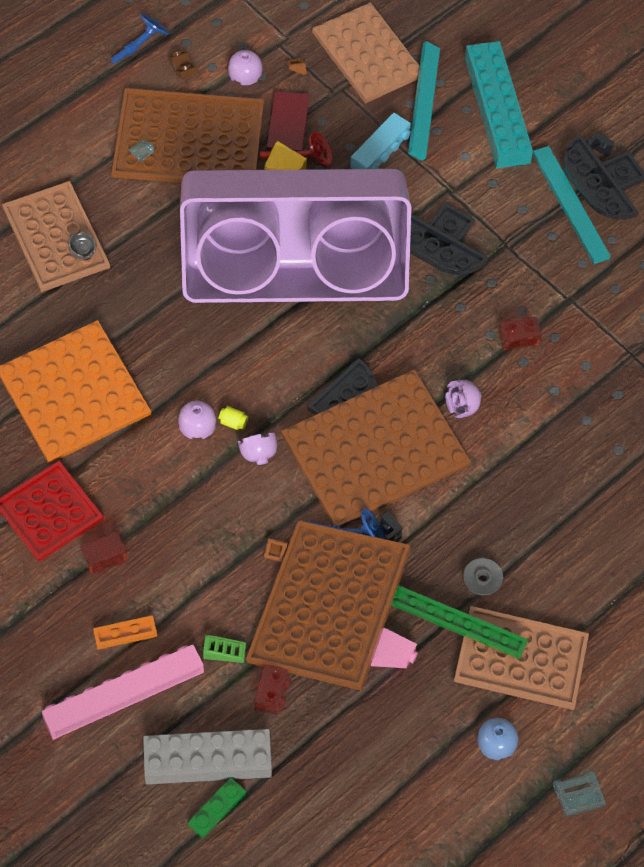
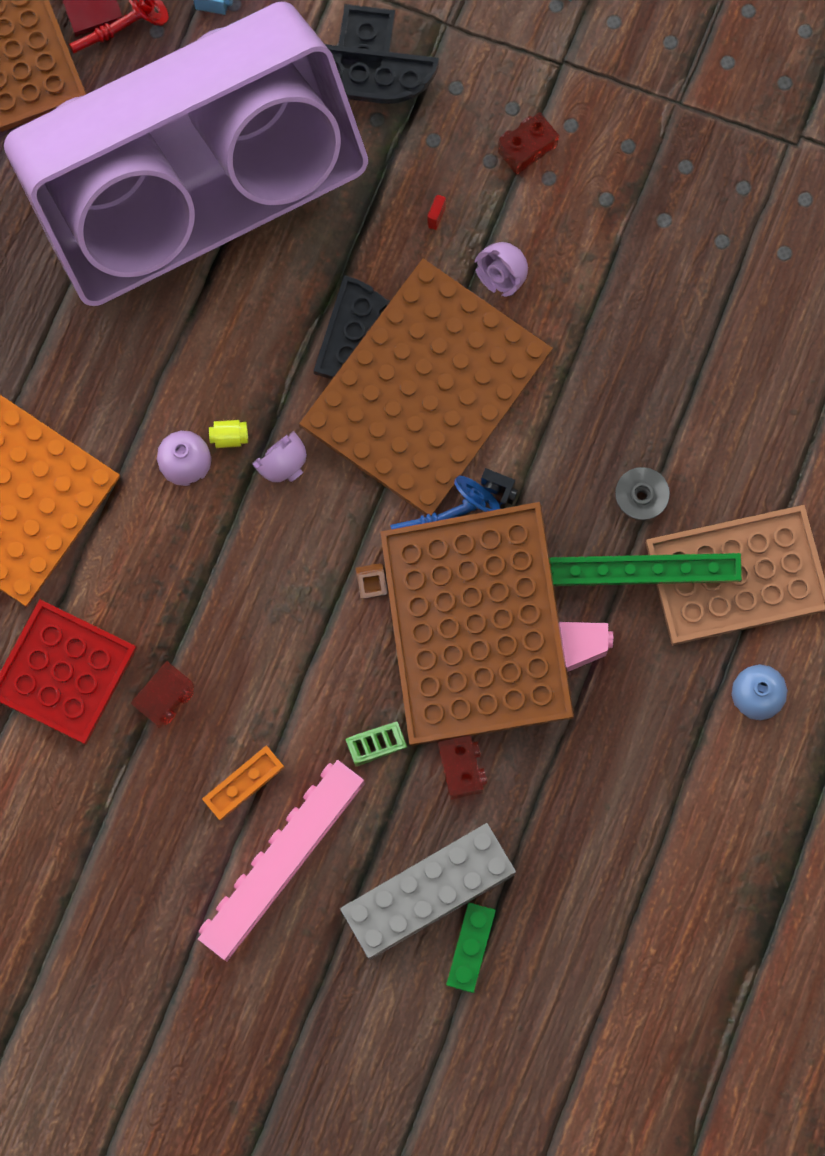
camera: 20 degrees left, 15 degrees up
(285, 159) = (114, 51): yellow slope -> none
(438, 347) = (436, 212): none -> red tile

